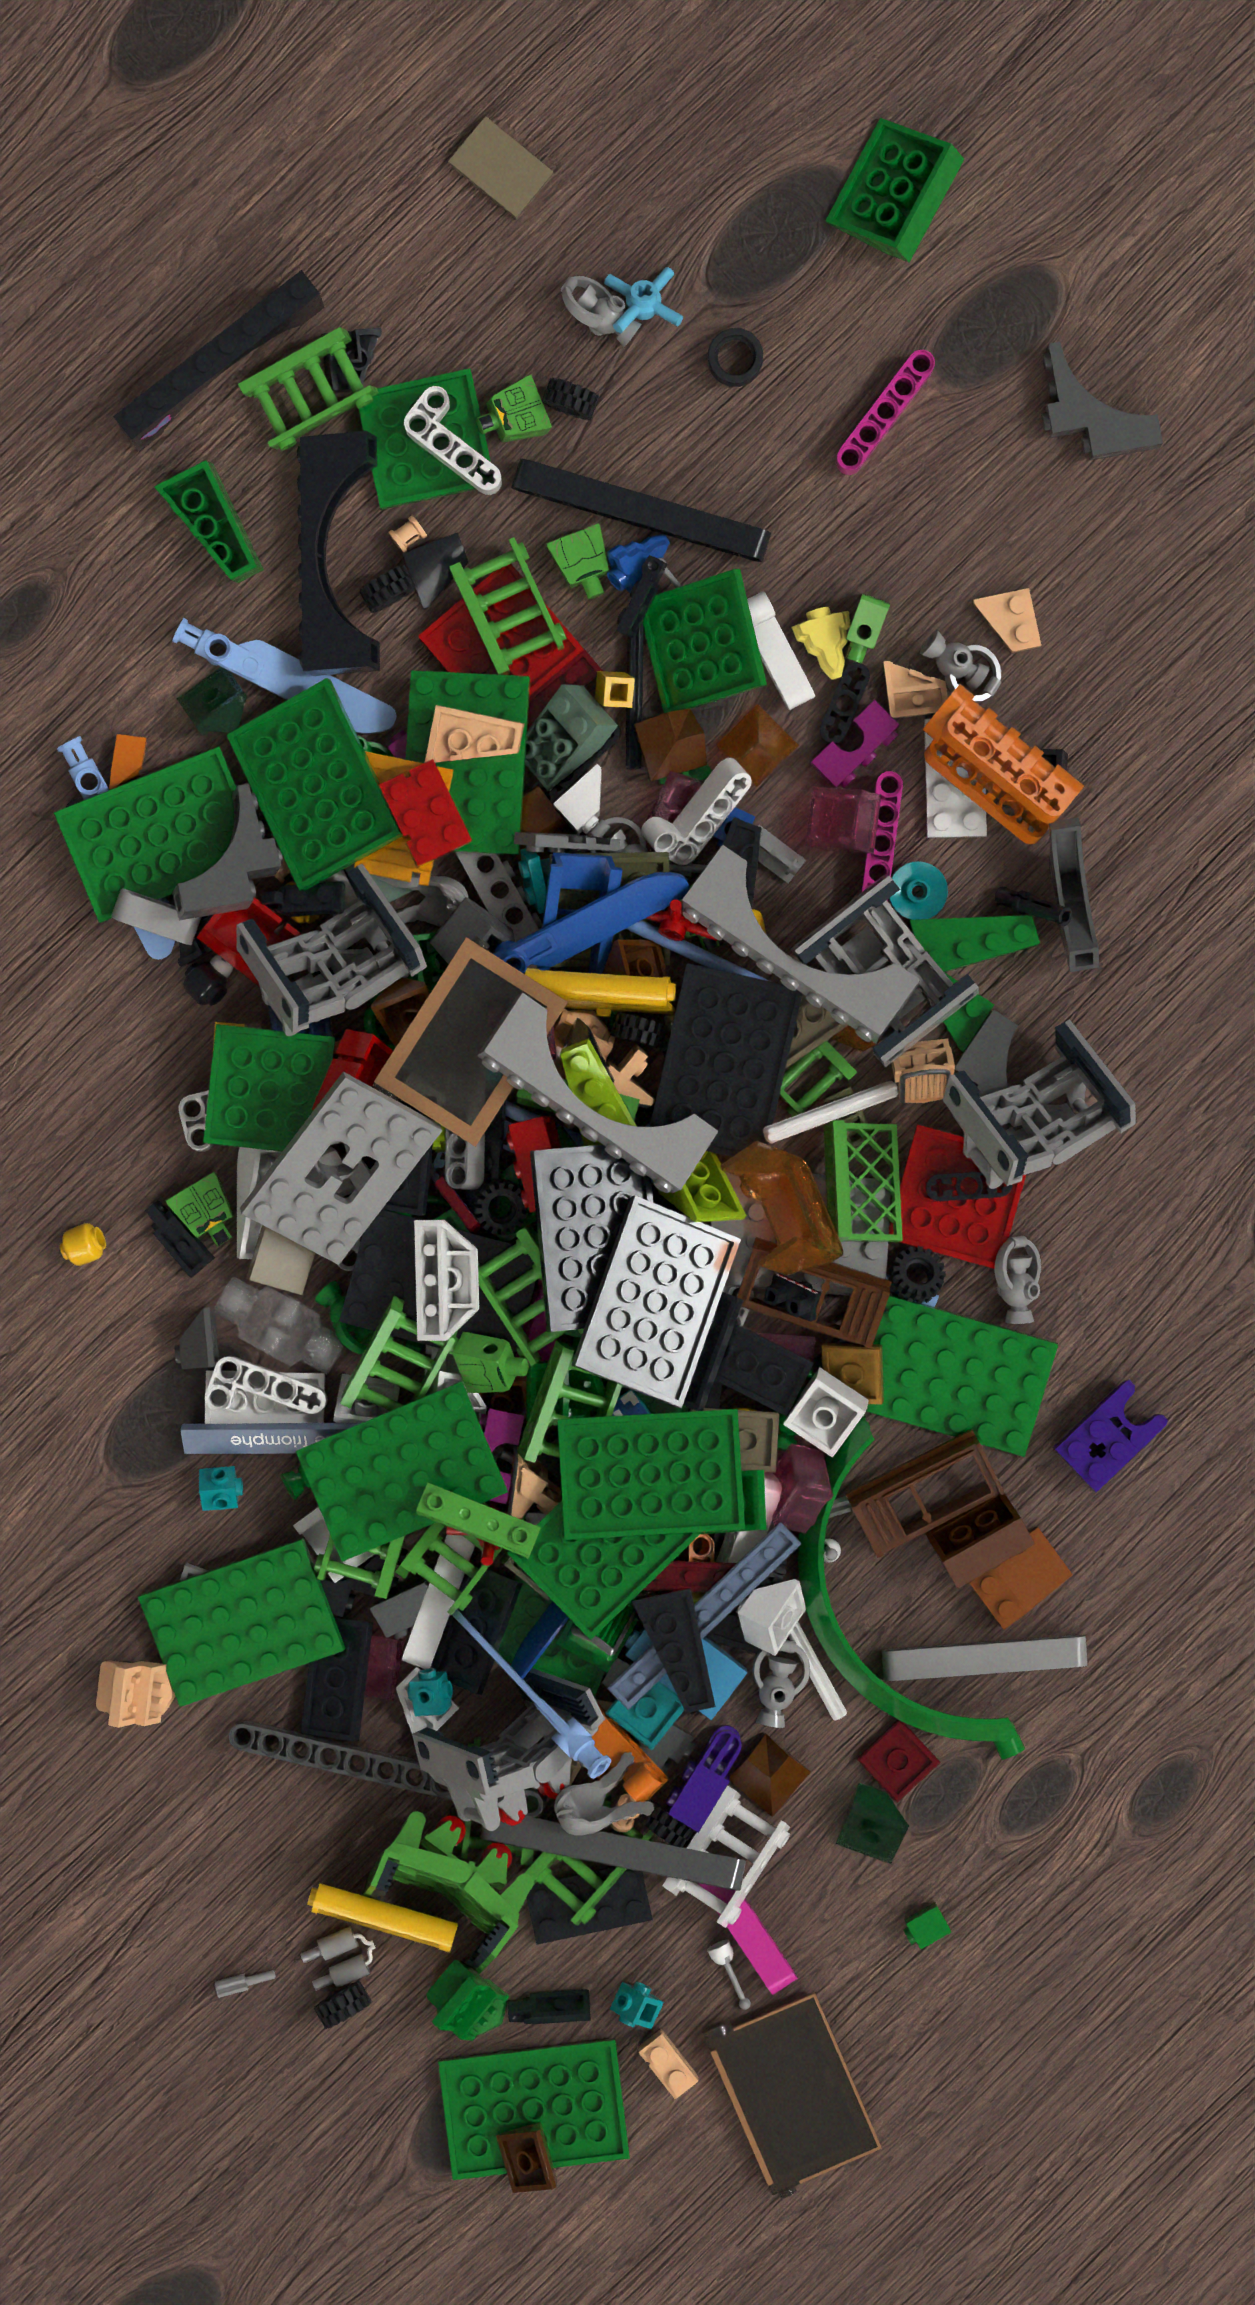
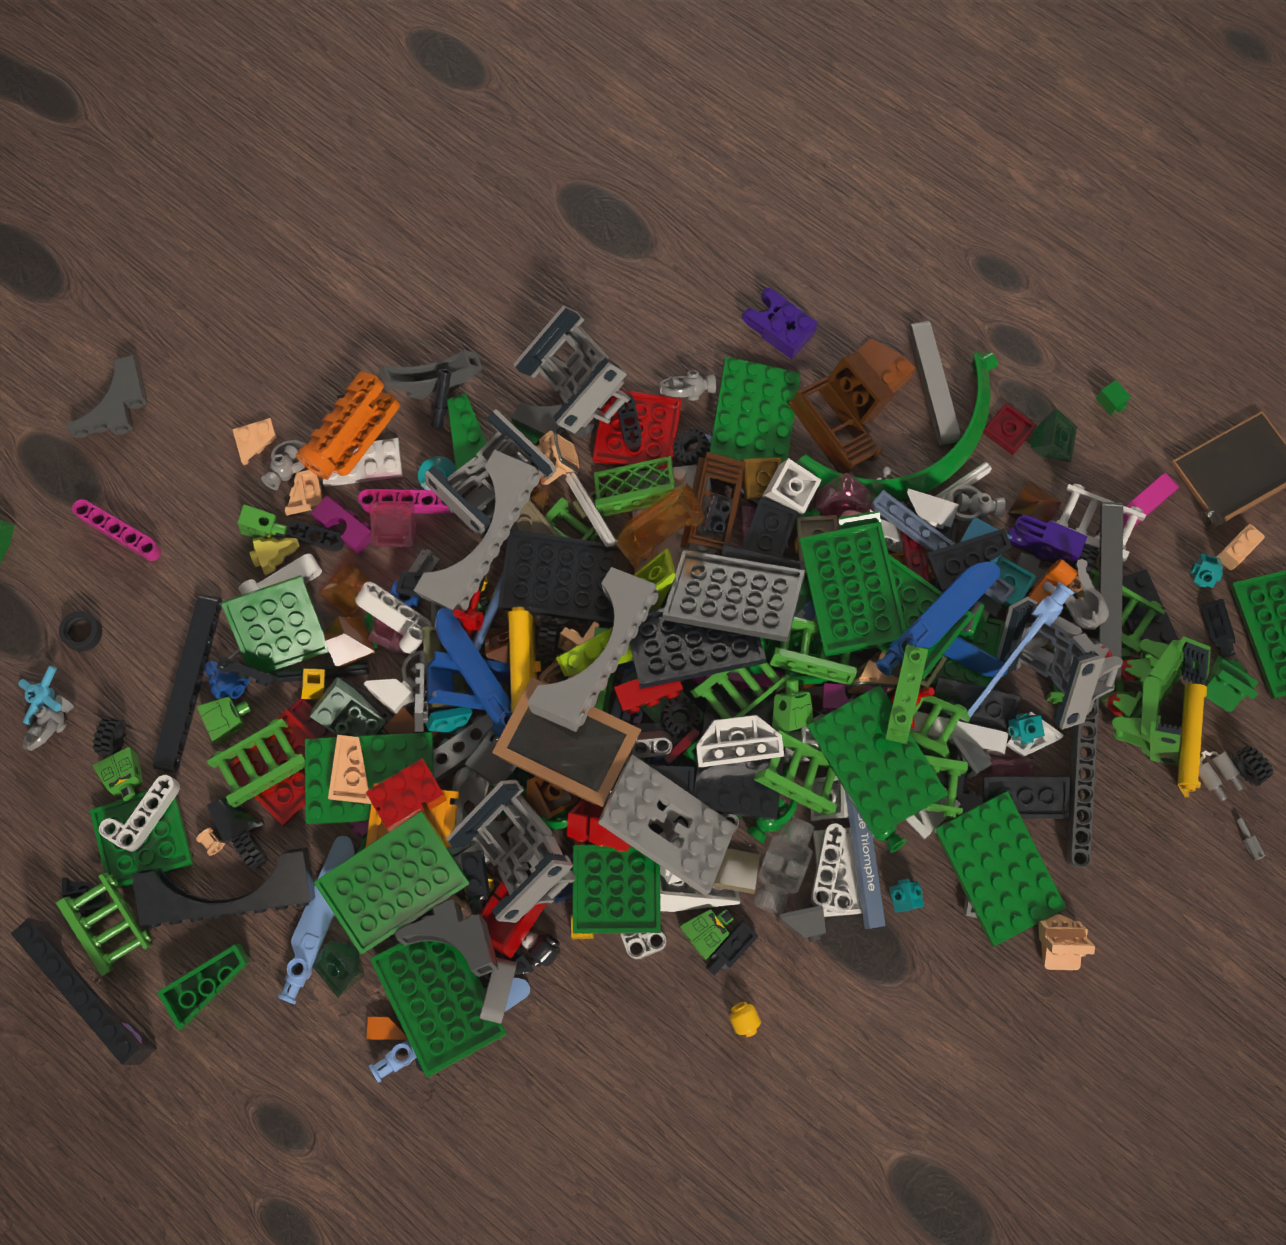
camera: 100 degrees left, 15 degrees down
(595, 1594) = (942, 613): none -> blue piece
(722, 1954) = (1159, 522): hinge -> none

